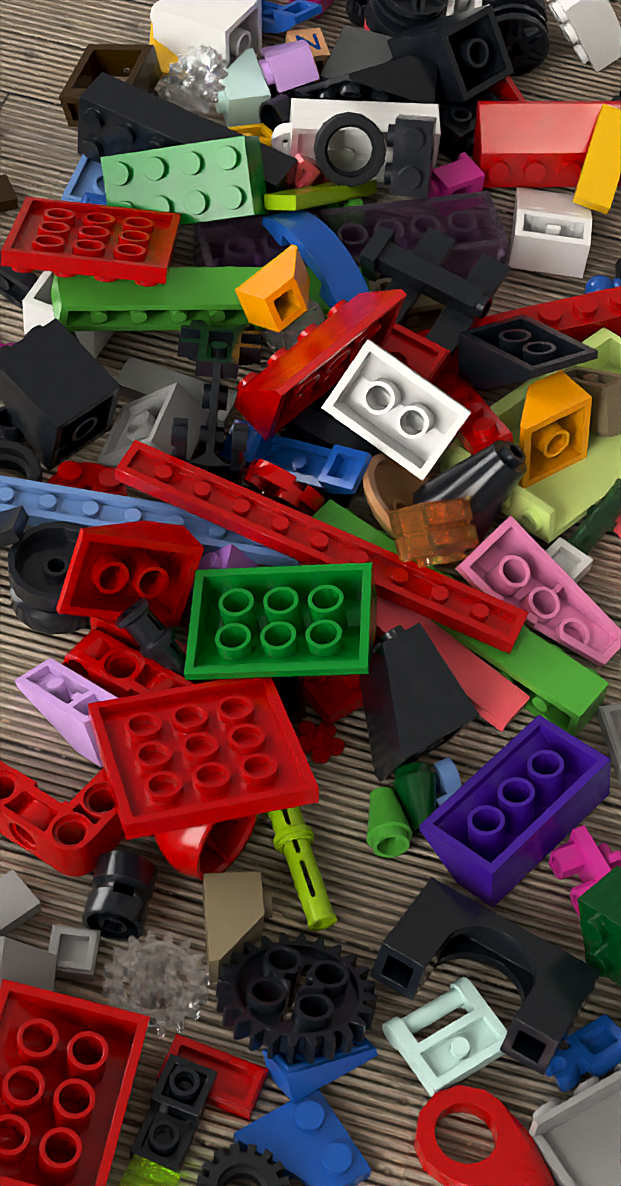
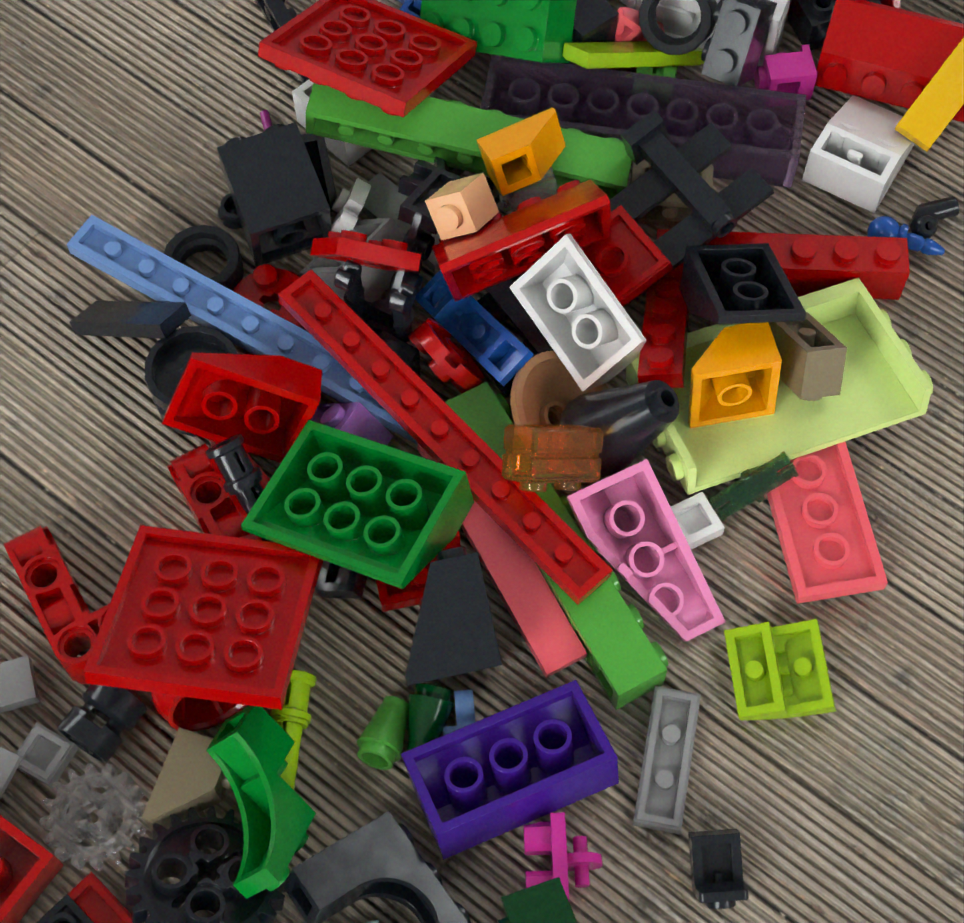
camera: 30 degrees right, 10 degrees up
(64, 701) = (151, 496): lavender slope -> none
(129, 393) = (348, 205): none -> white plate
(199, 408) = (351, 245): none -> red plate
(255, 345) = (462, 206): none -> light nougat brick
(319, 741) = (366, 625): red plant -> none
(321, 252) = (591, 126): blue slope -> none
(326, 908) = (273, 816): none -> green arch

